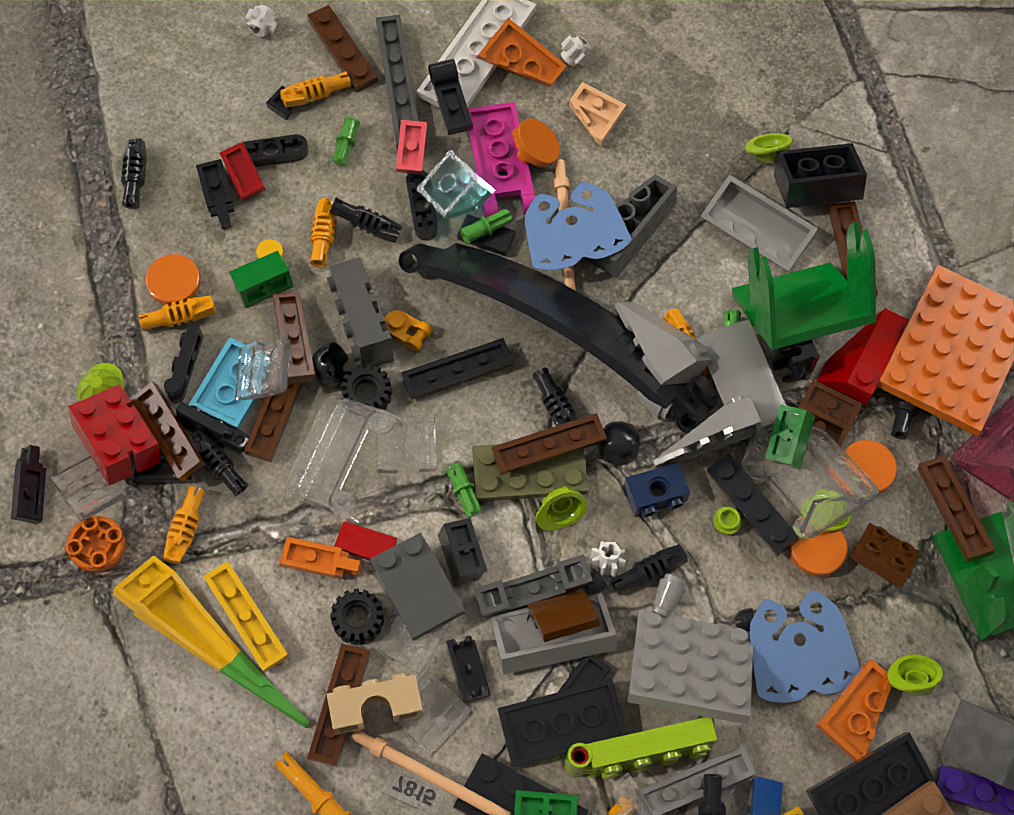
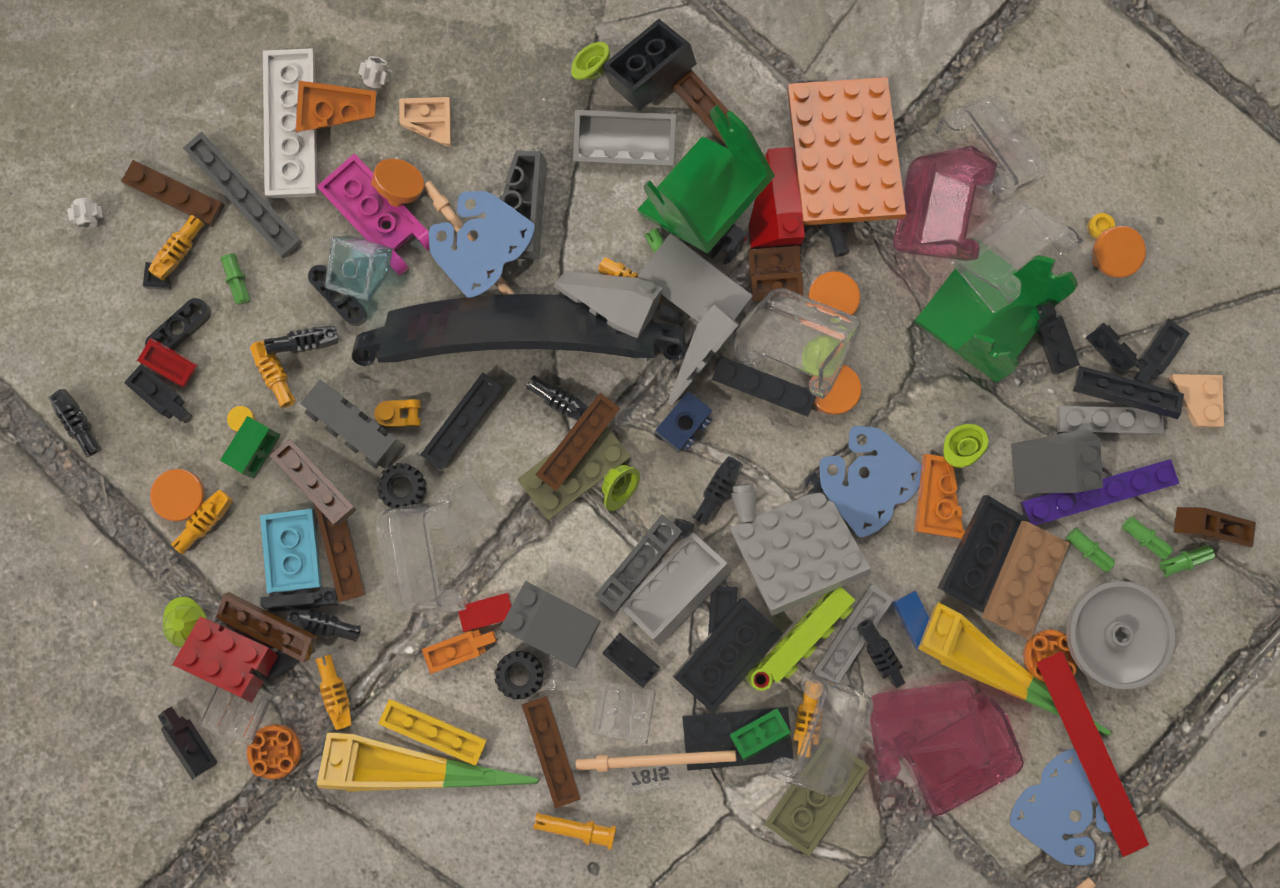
camera: 30 degrees left, 15 degrees up
(184, 364) = (239, 561): black plate -> none
(262, 369) = (307, 528): clear slope -> none
(329, 364) = (357, 486): black hair -> none
(349, 703) = (561, 753): tan arch -> none
(411, 147) = (295, 252): coral plate -> none
(450, 96) = (298, 185): black plate -> none
(462, 551) = (566, 571): black hinge -> none
(464, 490) = (534, 519): bright green axle -> none
(485, 226) = (405, 283): bright green axle -> none
(498, 242) = (409, 288): black tile -> none
(563, 615) = (677, 572): reddish brown slope -> none
(607, 559) = (681, 496): white gear -> none
(621, 443) = (631, 399): black hair -> none
(727, 520) = (752, 411): lime plate -> none
(790, 436) = (763, 315): green hinge -> none
(885, 555) = (888, 363): reddish brown plate -> none
(956, 509) = (920, 290): reddish brown plate -> none

